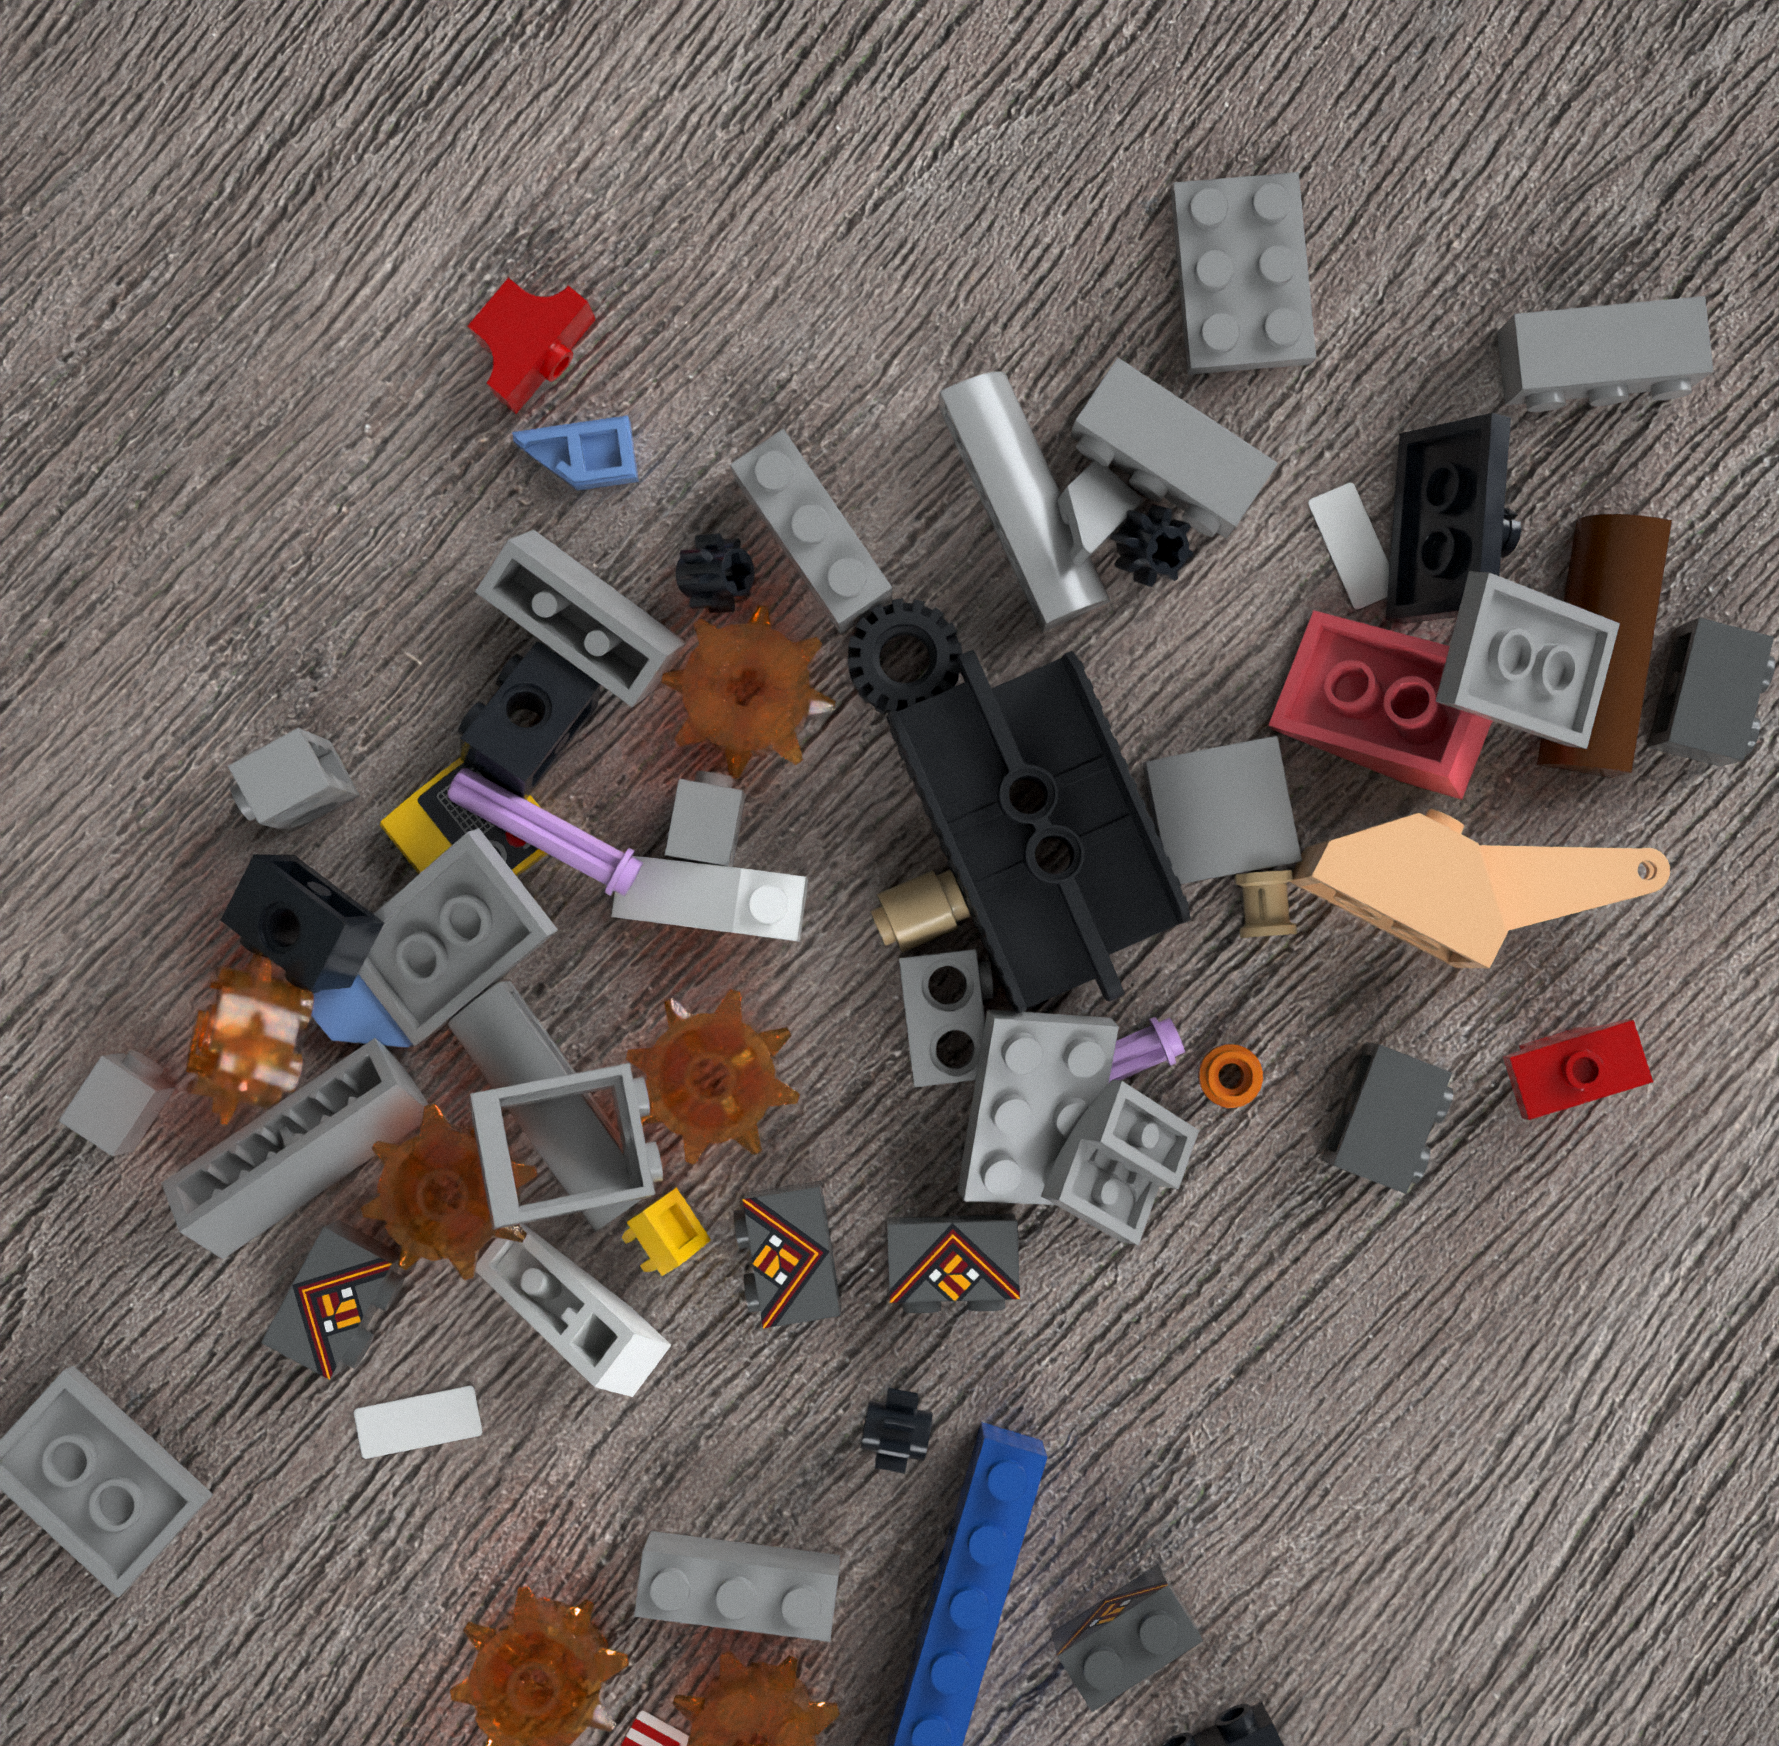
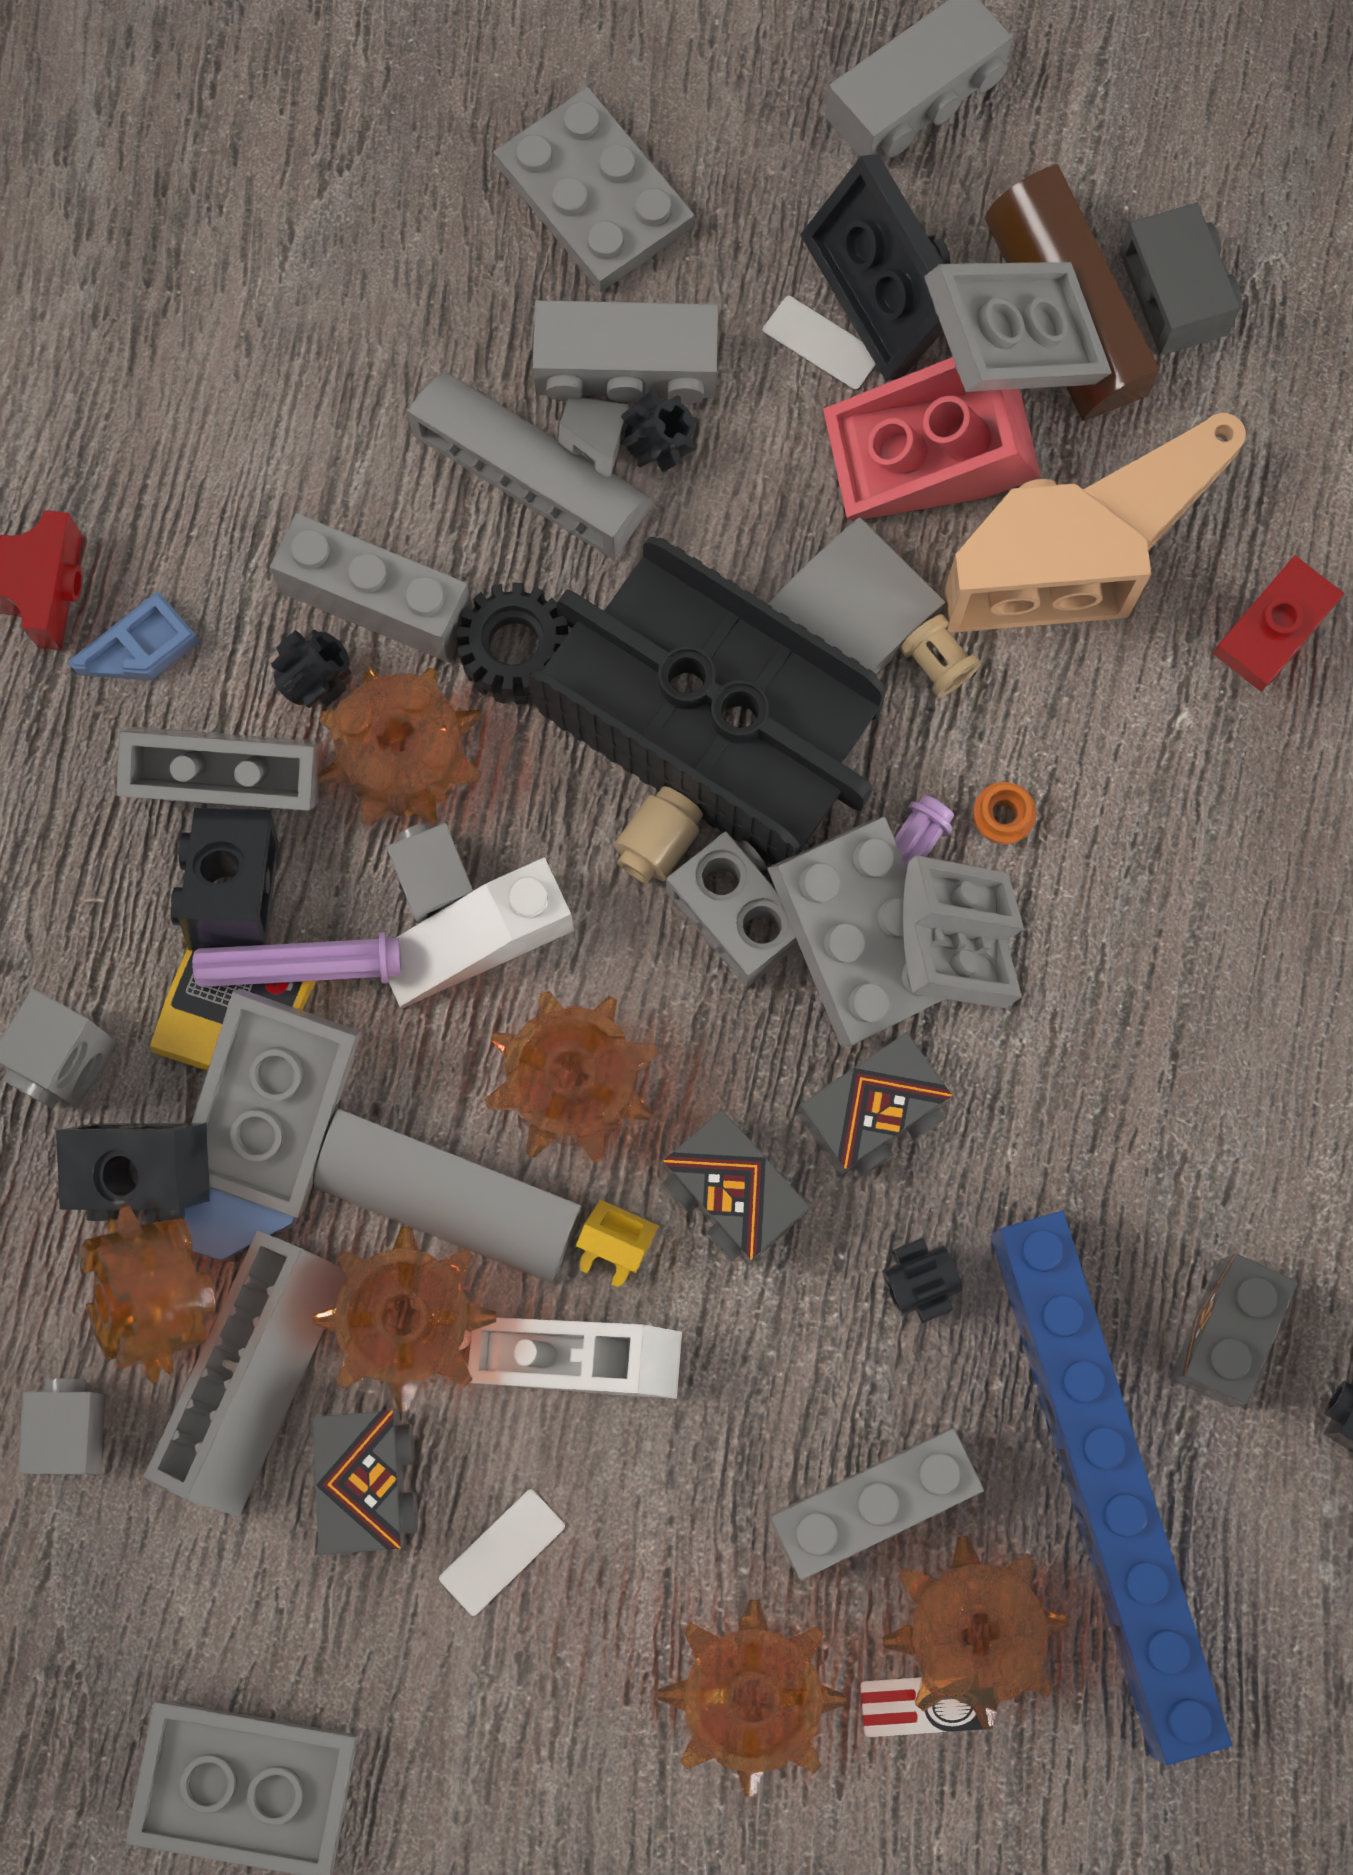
camera: 30 degrees left, 10 degrees down
(630, 1104) = (430, 1248): light grey window -> none
(1389, 1117) = (1155, 763): dark grey brick -> none

